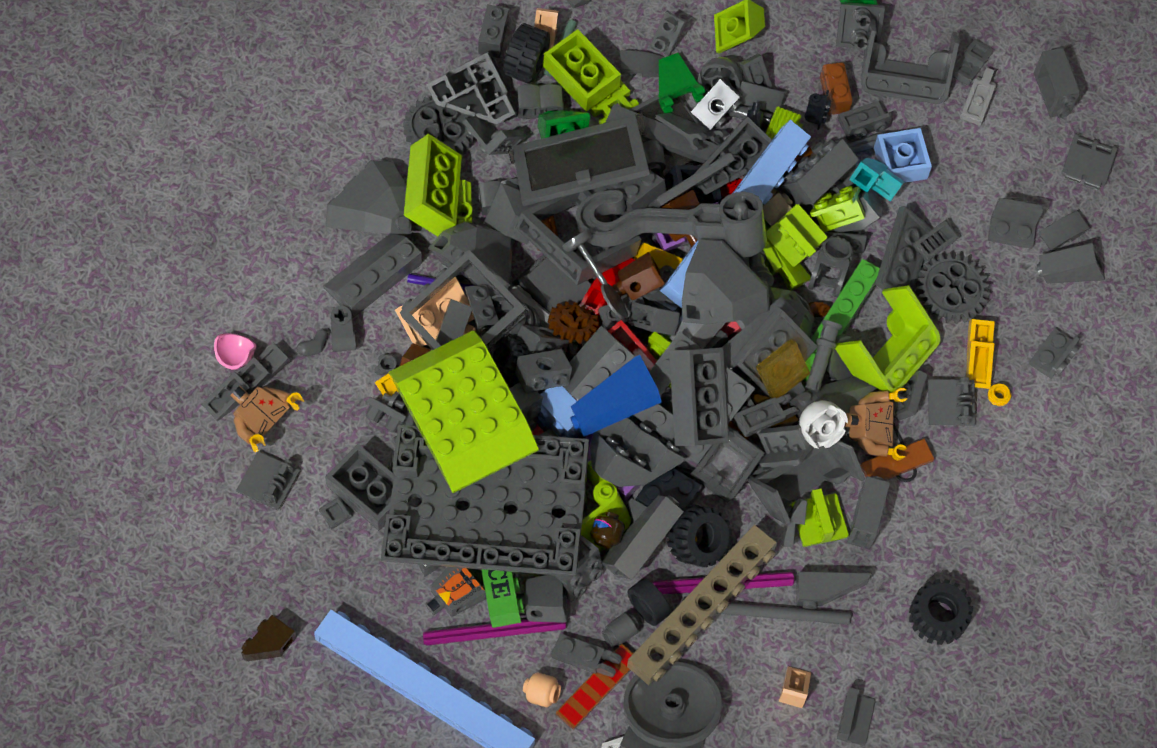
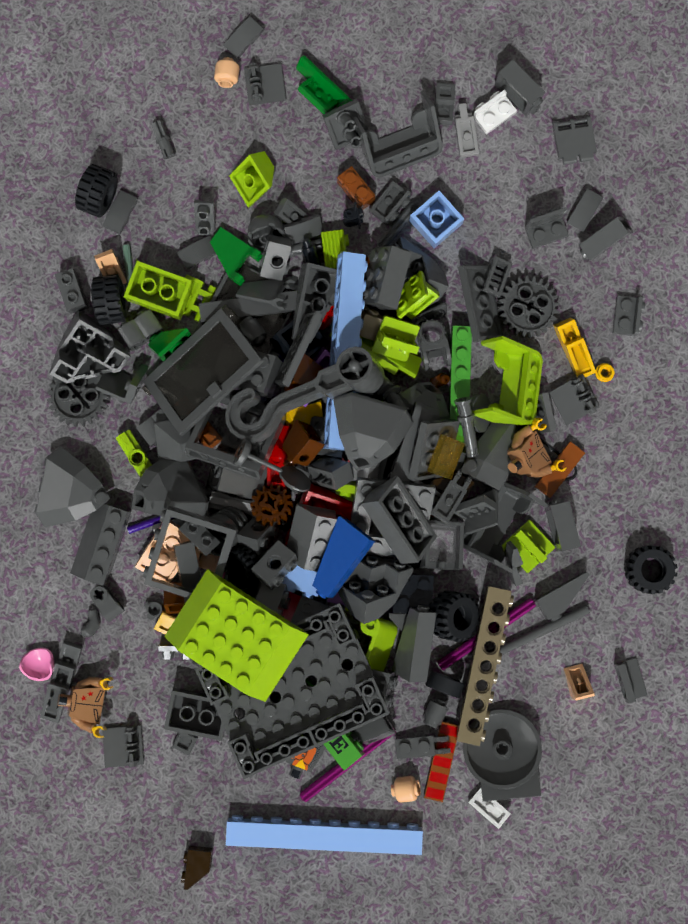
camera: 25 degrees left, 20 degrees up
(432, 185) = (104, 454): lime brick -> none
(607, 530) = (387, 652): dark brown head -> none
(823, 423) = (497, 484): white cylinder -> none
(874, 175) = (428, 253): teal brick -> none
(1019, 94) = (494, 112): none -> white bracket

